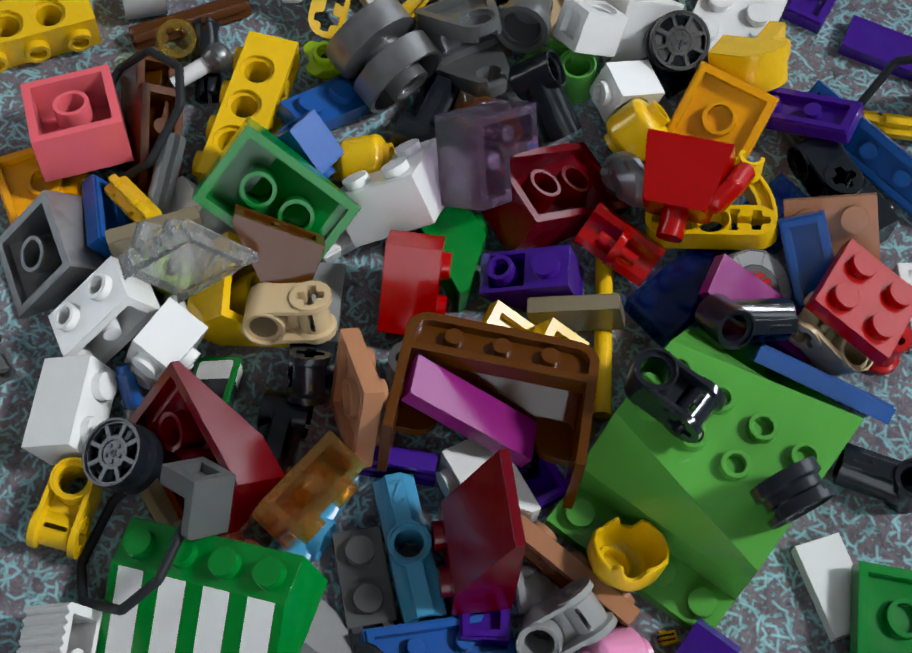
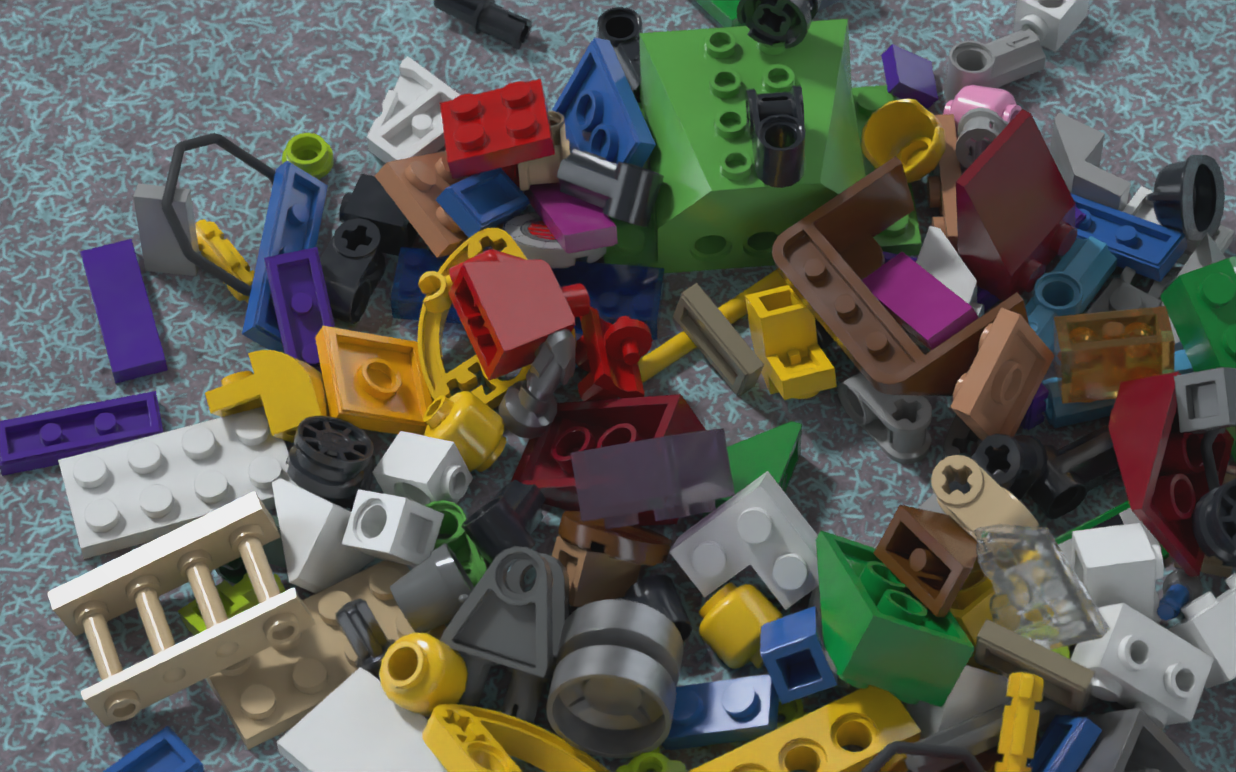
camera: 125 degrees left, 10 degrees down
(412, 278) = (834, 462): red brick -> none
(530, 273) = (718, 391): dark purple slope -> none

